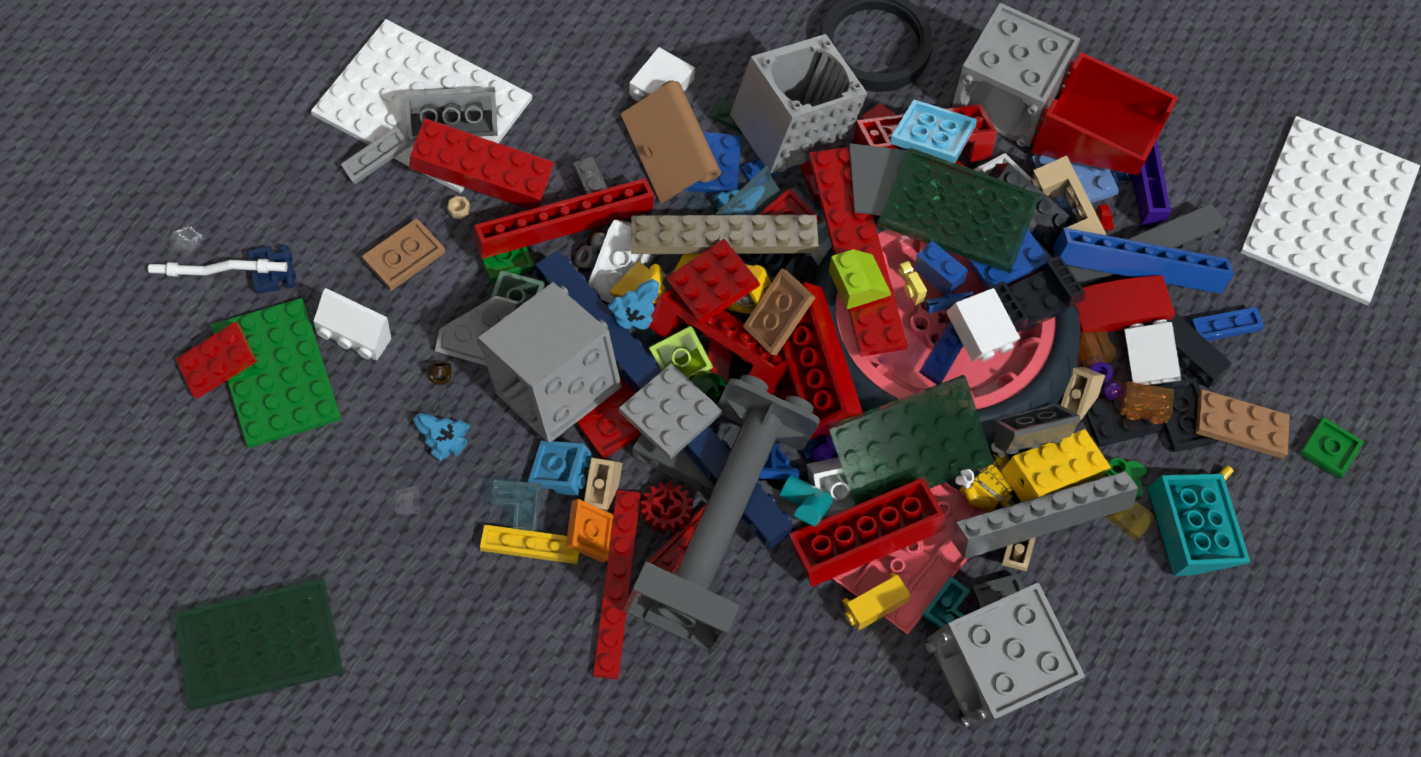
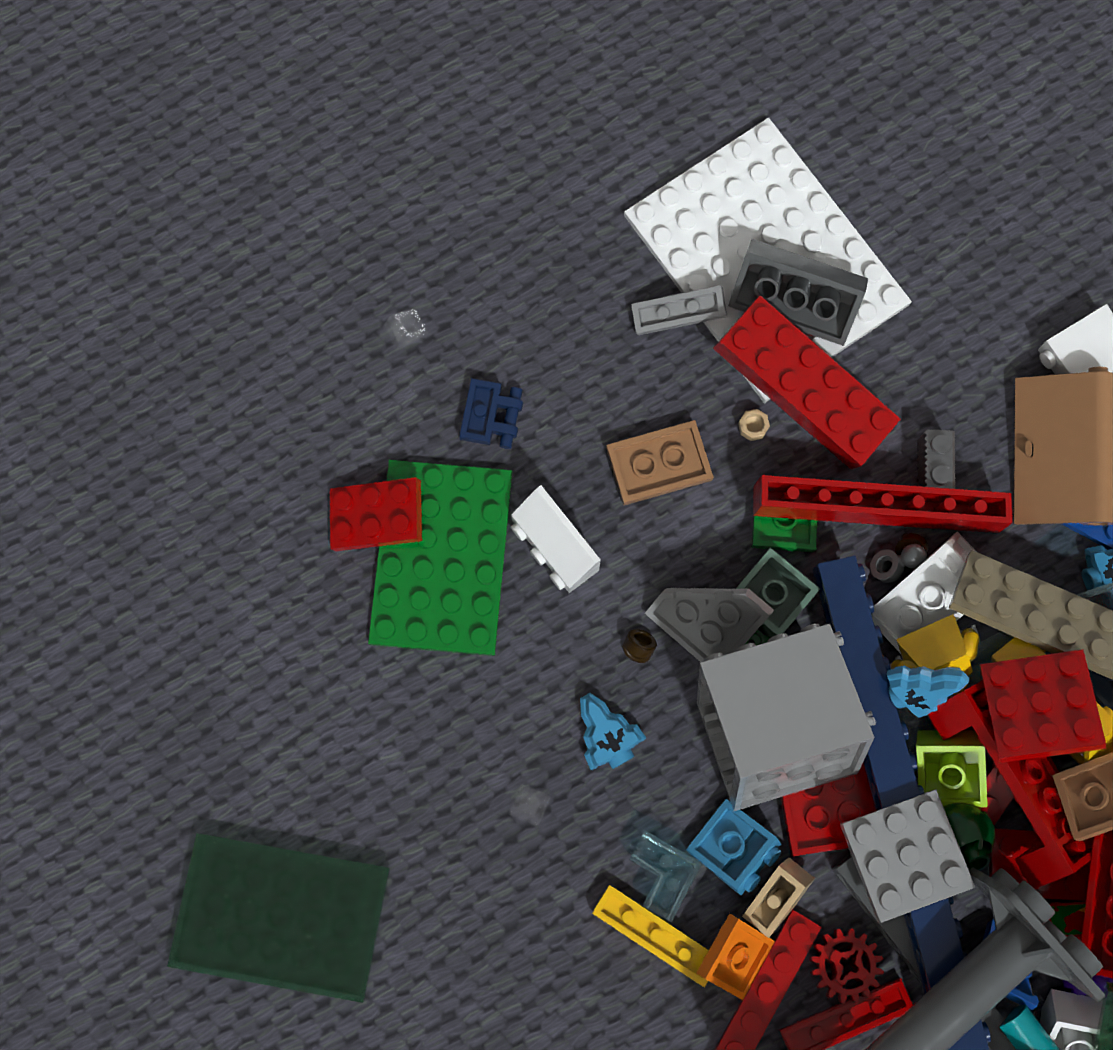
camera: 30 degrees right, 15 degrees up
(174, 269) = (478, 409): white bar -> none

